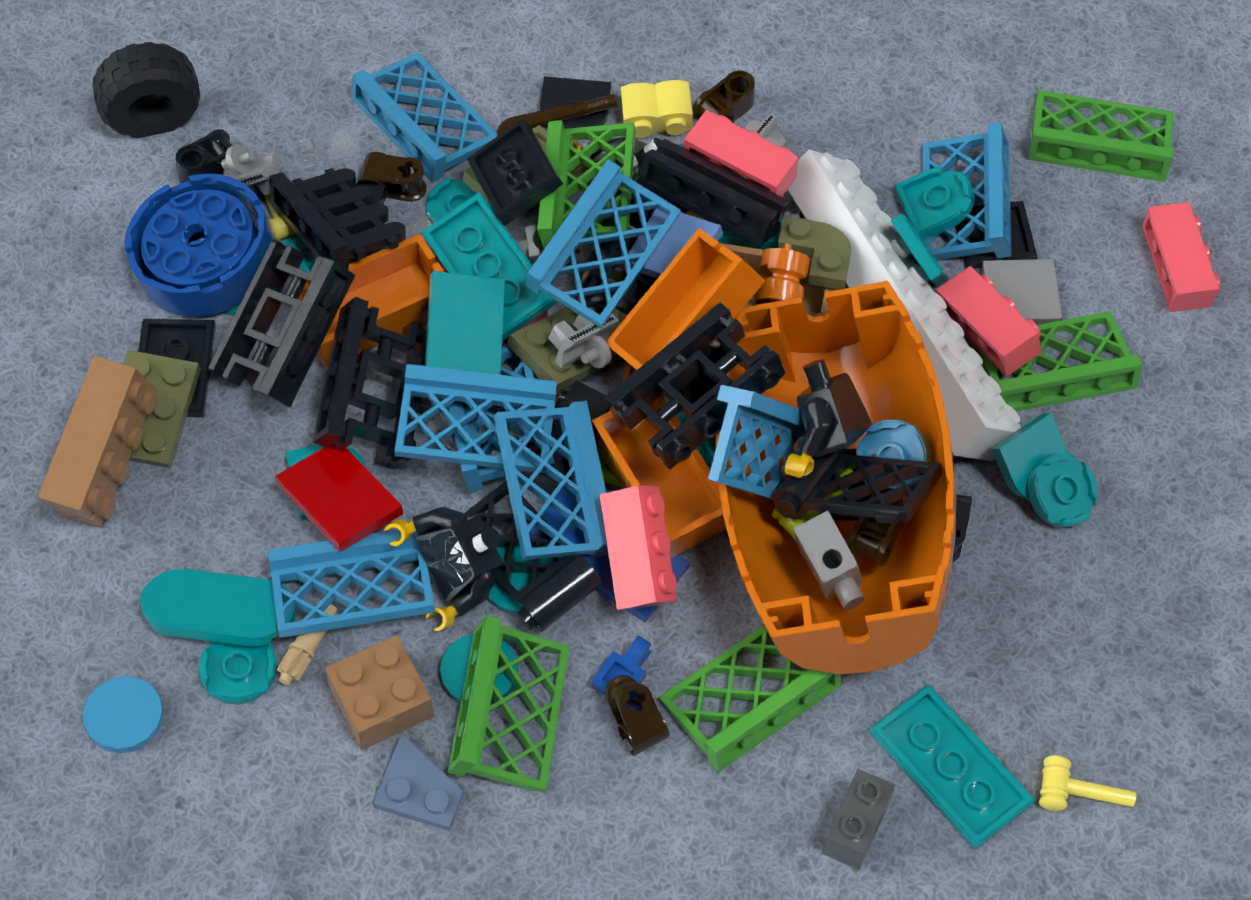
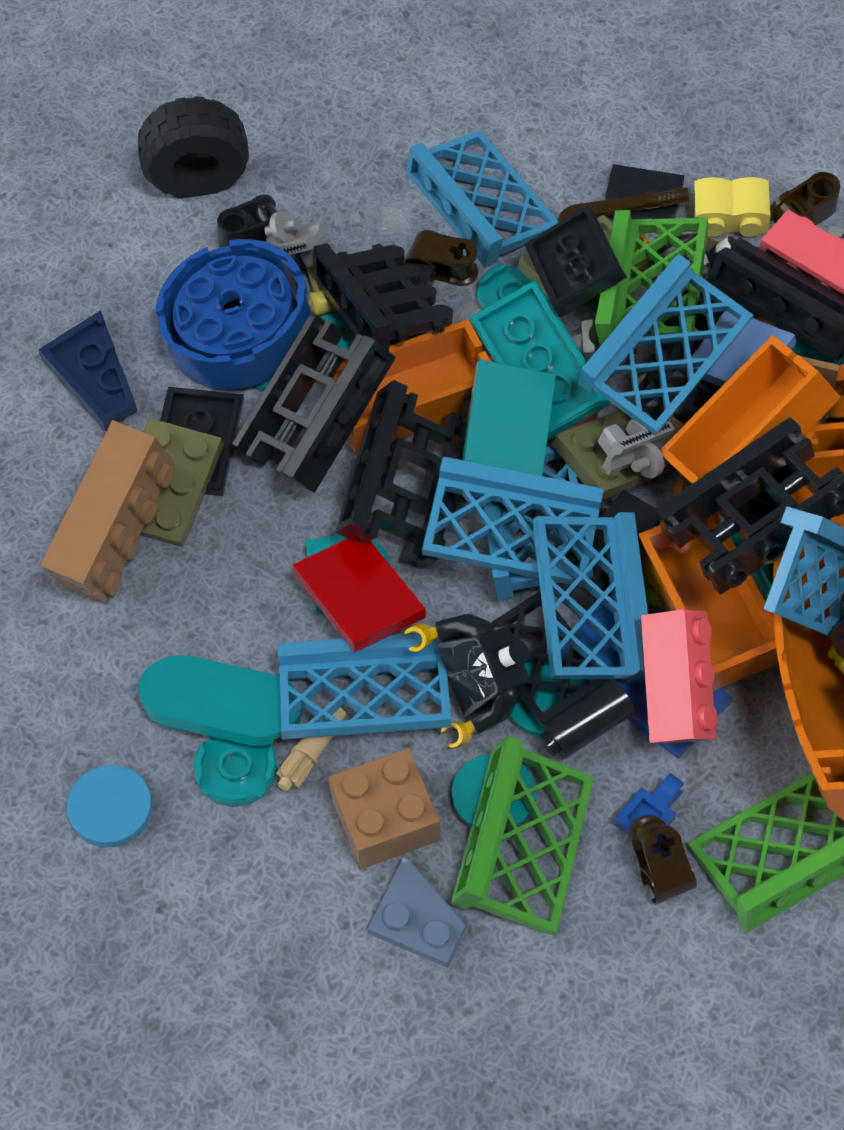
camera: 10 degrees right, 0 degrees up
(68, 309) = (91, 370): none -> dark blue wing

